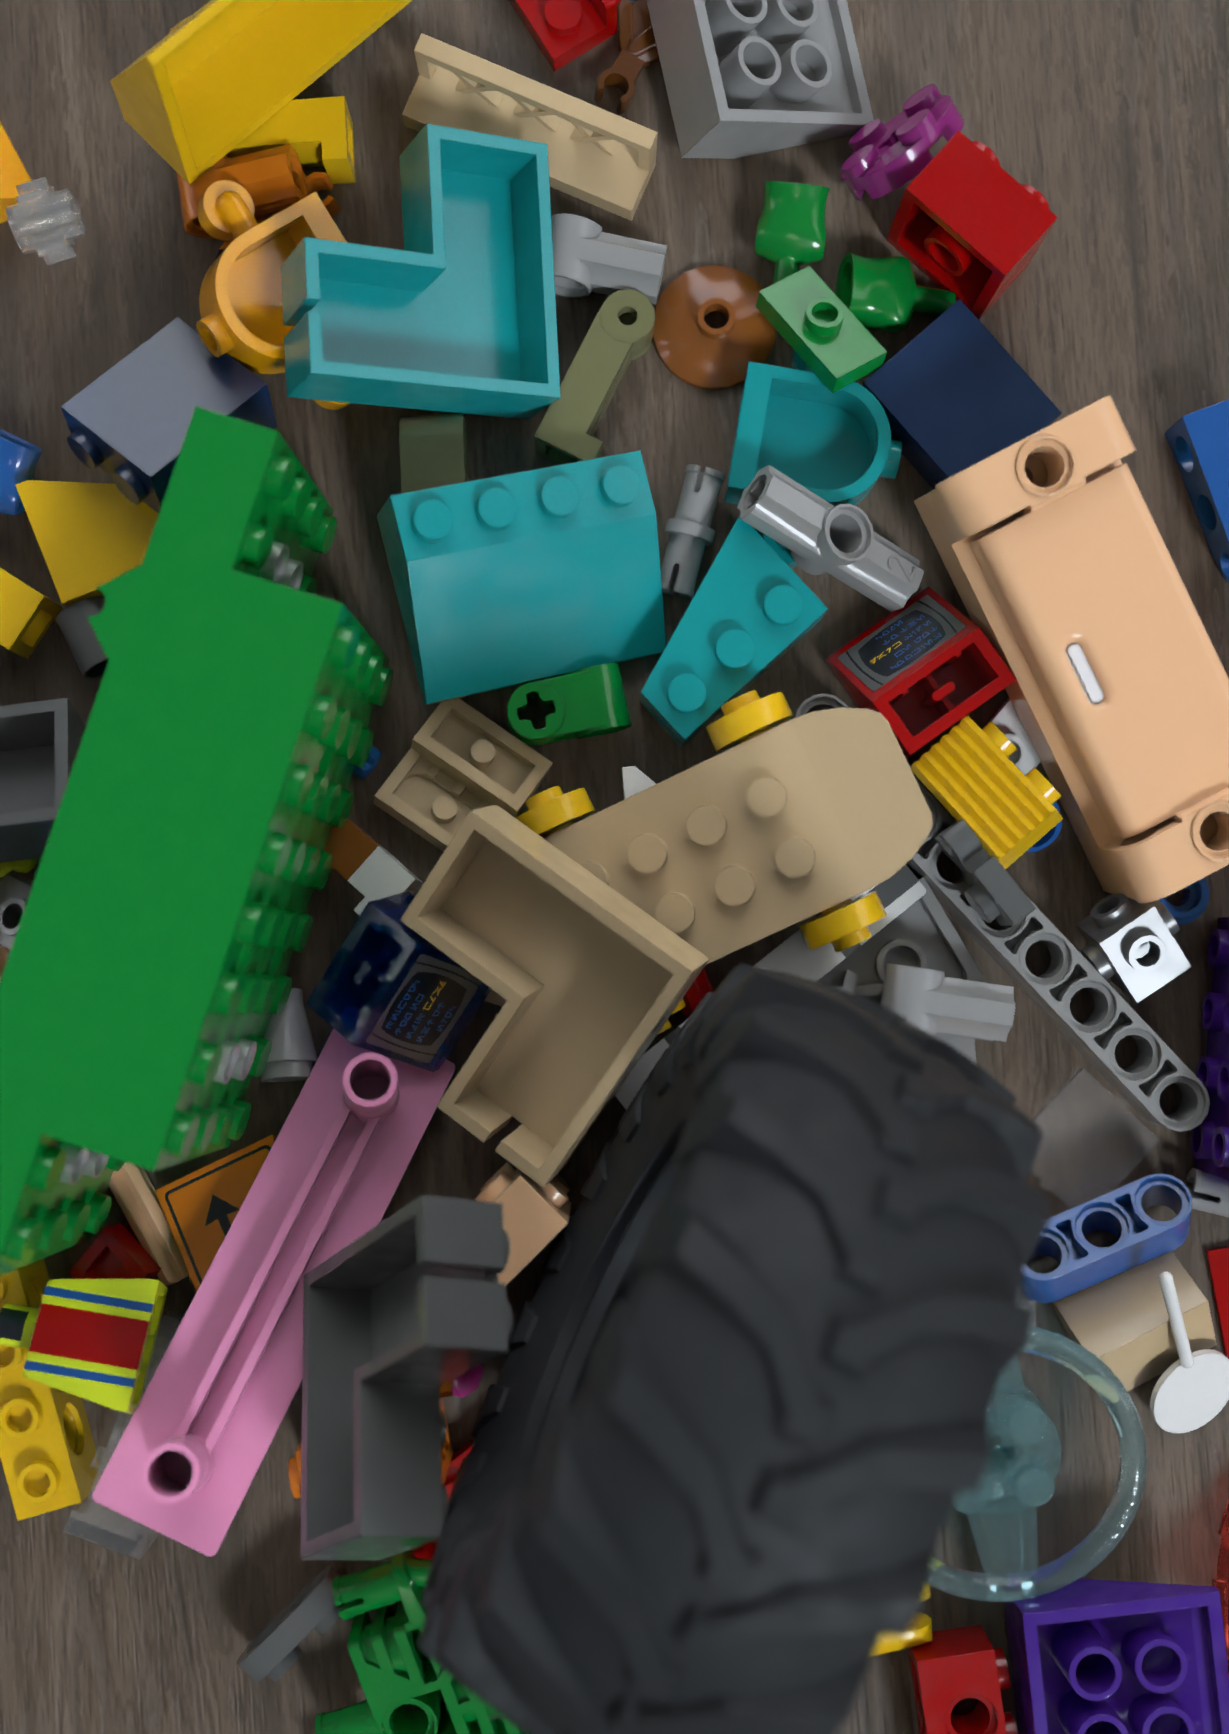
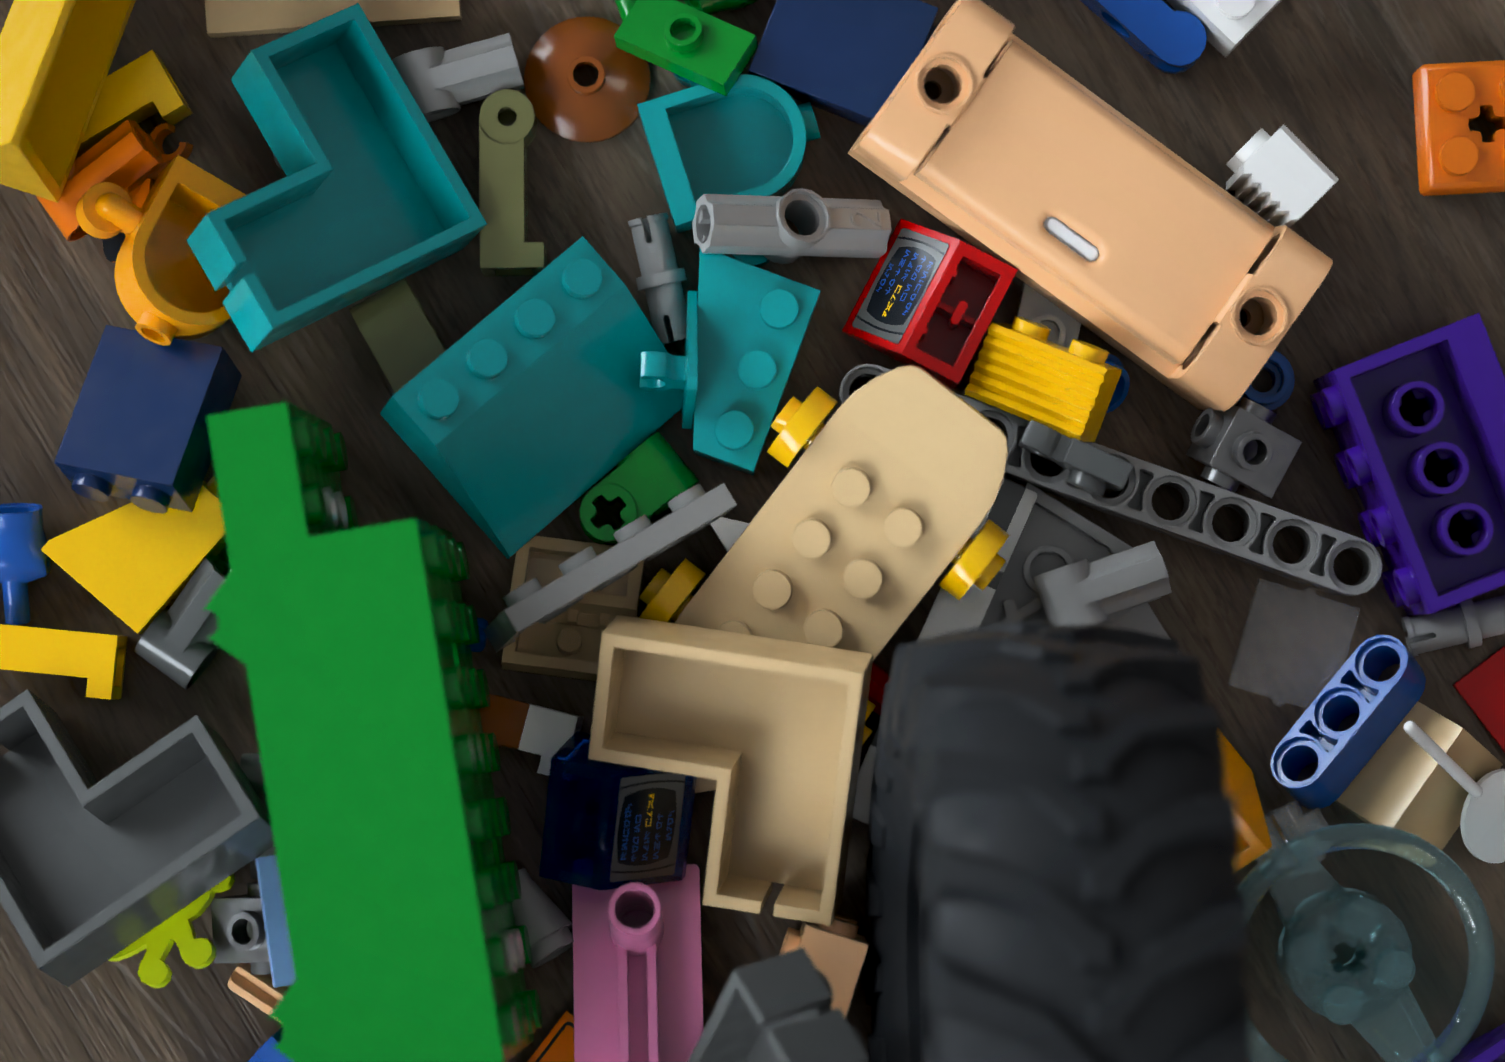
camera: 25 degrees left, 0 degrees up
(487, 748) = (587, 571): none -> light grey wing
(652, 610) = (665, 371): none -> teal piece

